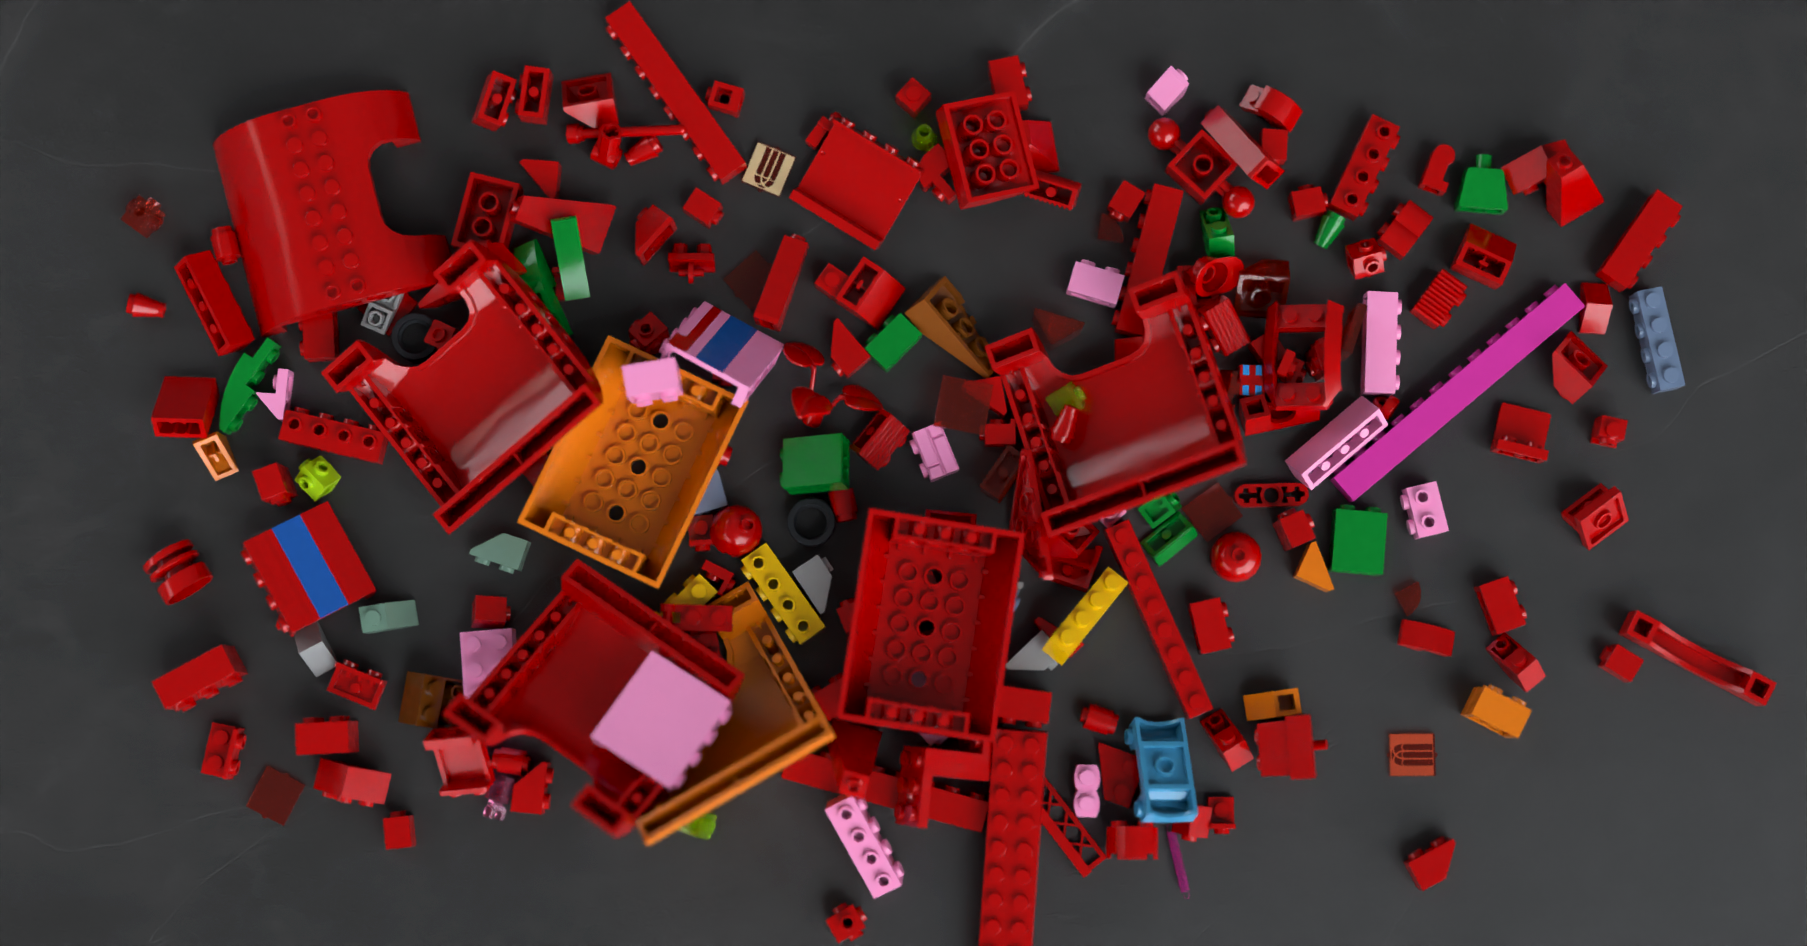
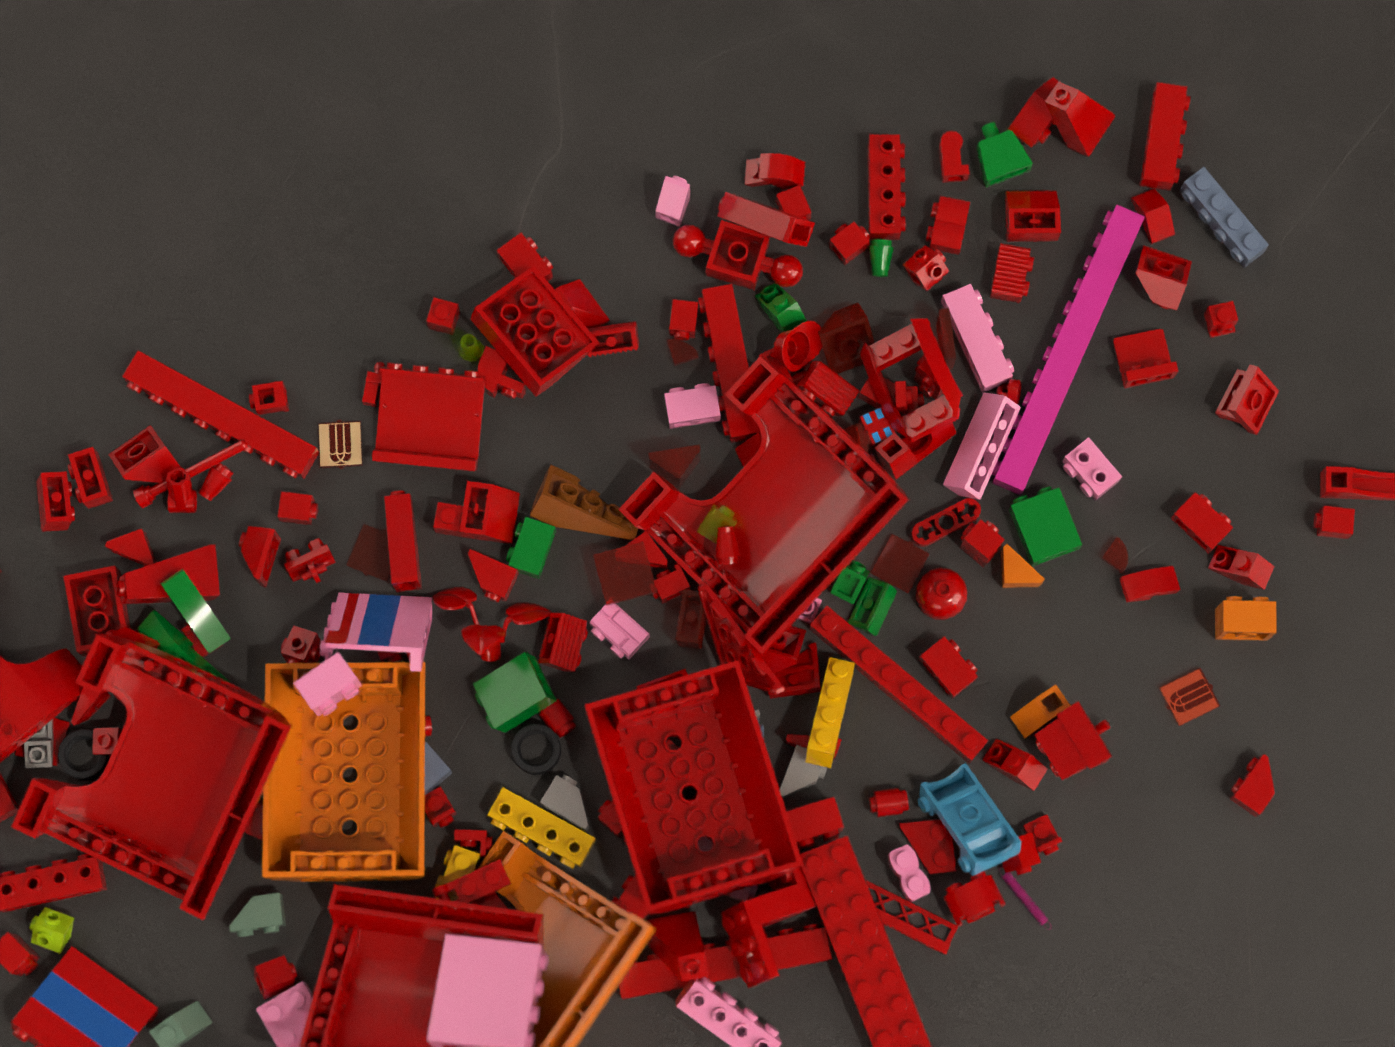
camera: 25 degrees left, 5 degrees down
(736, 530) = (470, 789): red cylinder -> none

